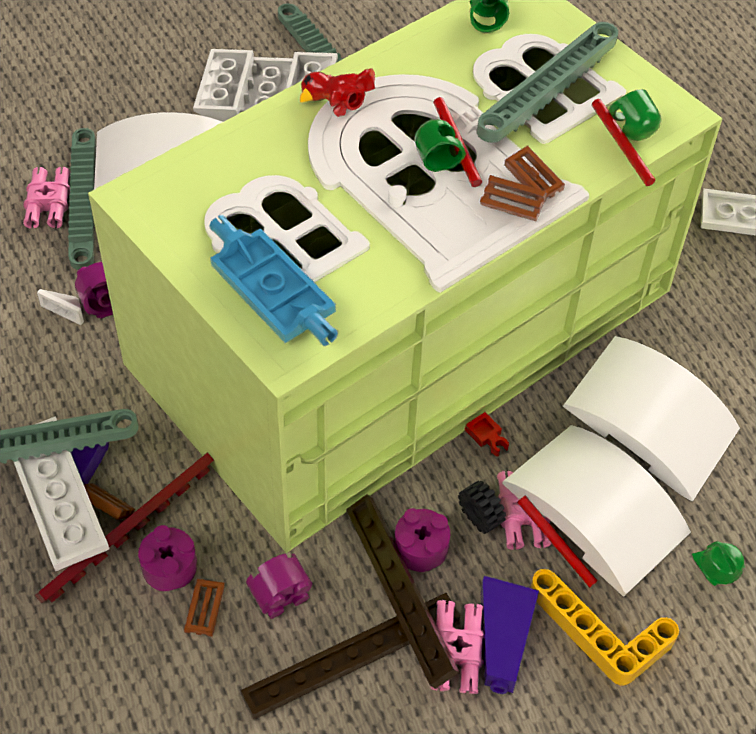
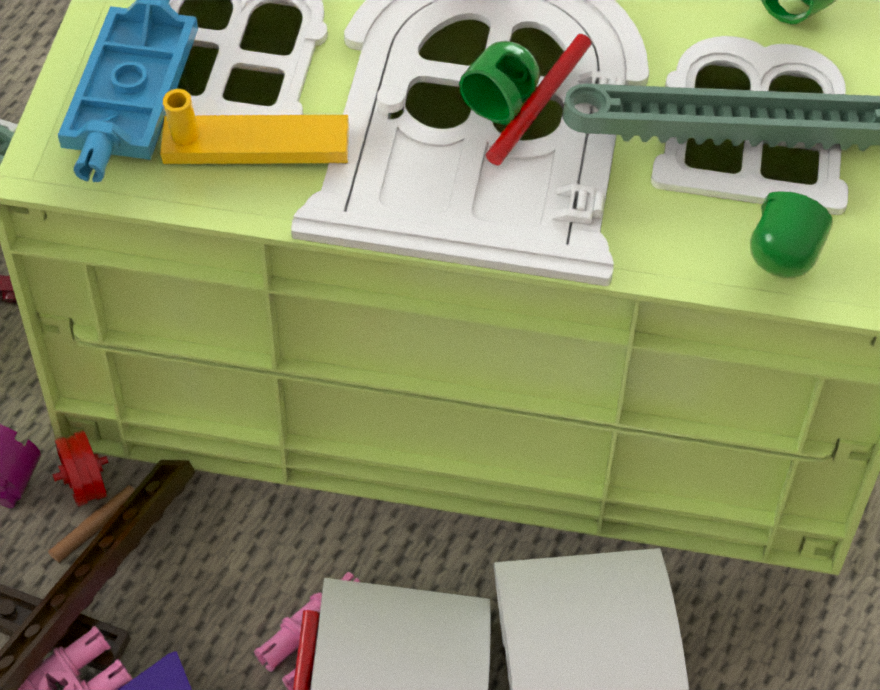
camera: 50 degrees right, 0 degrees up
(323, 544) = (80, 468): none -> red wheel
(350, 274) = (249, 138): none -> yellow piece
(355, 568) = (89, 526): none -> medium nougat piece
(422, 539) = (177, 557): magenta brick -> none
(482, 506) = (274, 584): black tyre -> none
(486, 431) = (398, 520): red plate -> none
(516, 187) = (488, 179): dark orange tile -> none
(529, 176) = (560, 230): dark orange tile -> none
(623, 142) = (733, 265): red bar -> none

